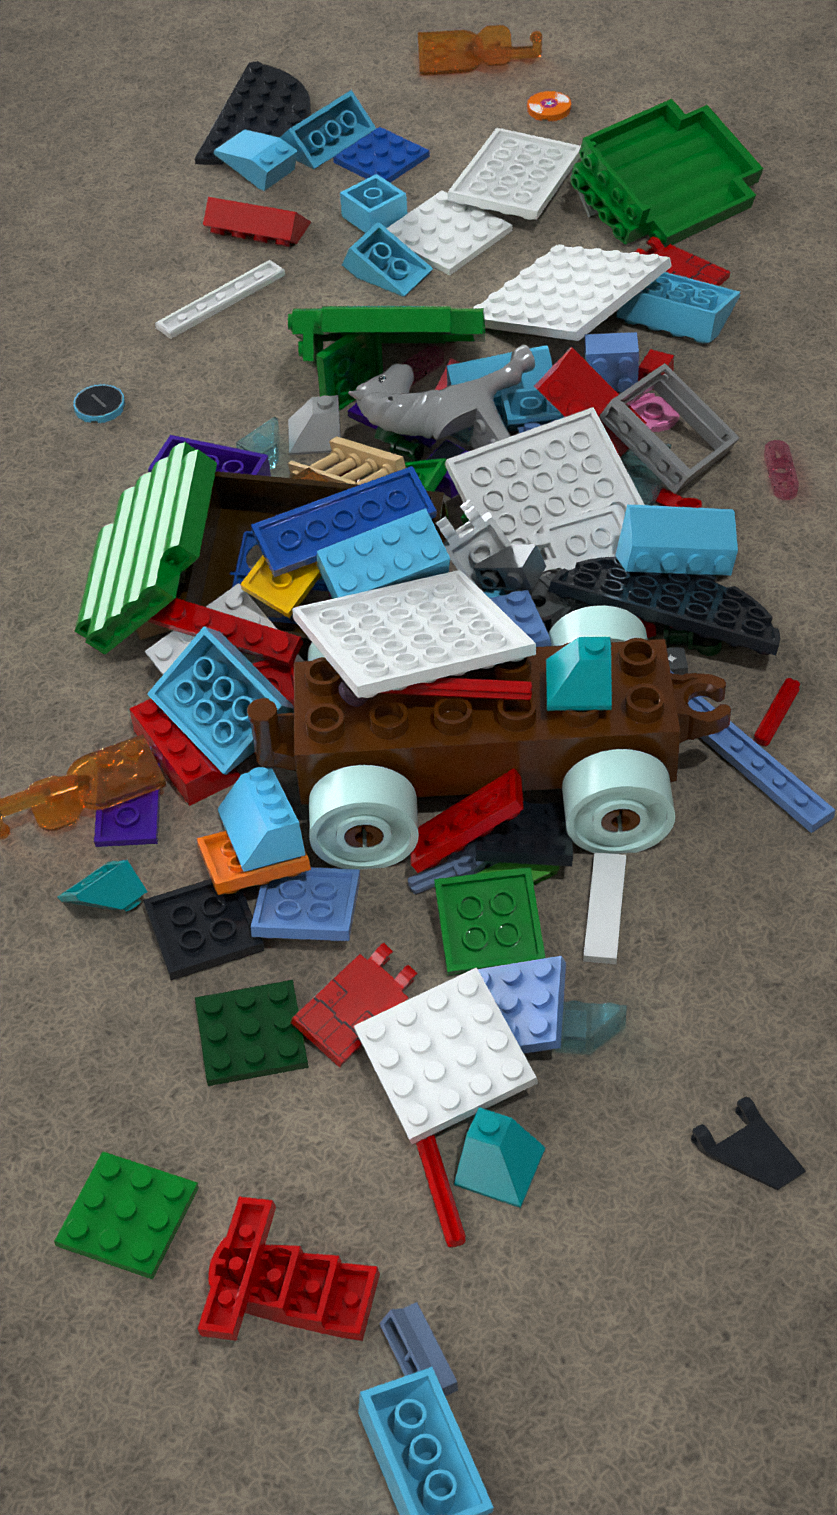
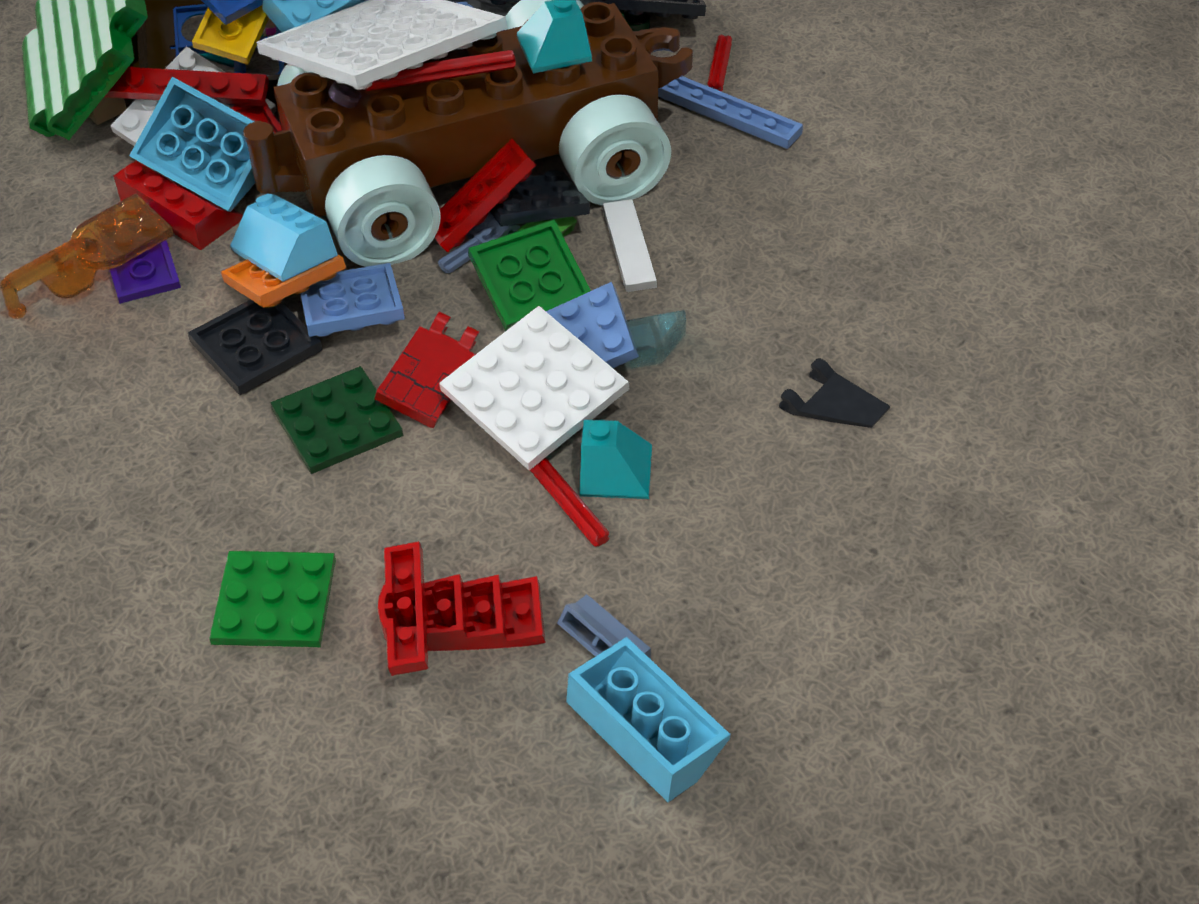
camera: 20 degrees left, 0 degrees up
(108, 887) = (148, 331): teal slope -> none

